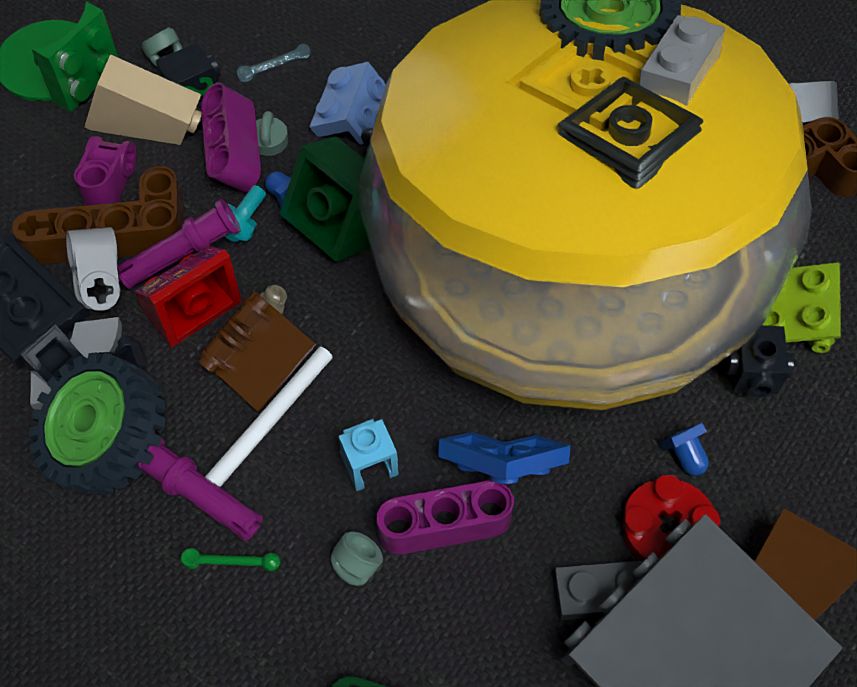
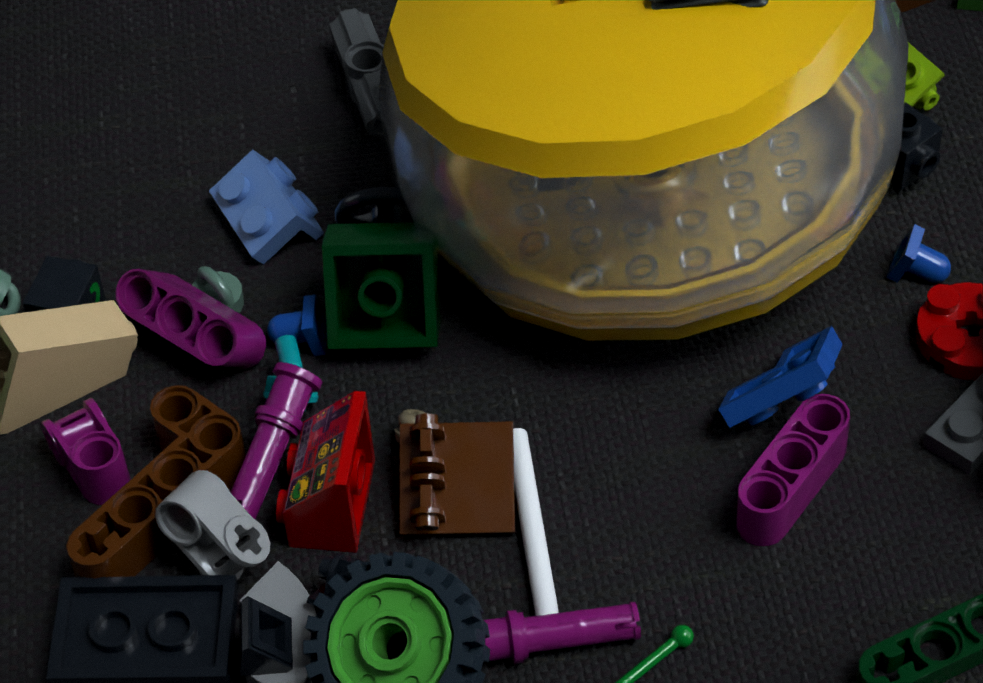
camera: 40 degrees left, 10 degrees down
(246, 73) = (112, 259): clear light blue hinge -> none
(356, 558) = (756, 558): sand green tile -> none
(366, 446) = (664, 470): medium azure window -> none

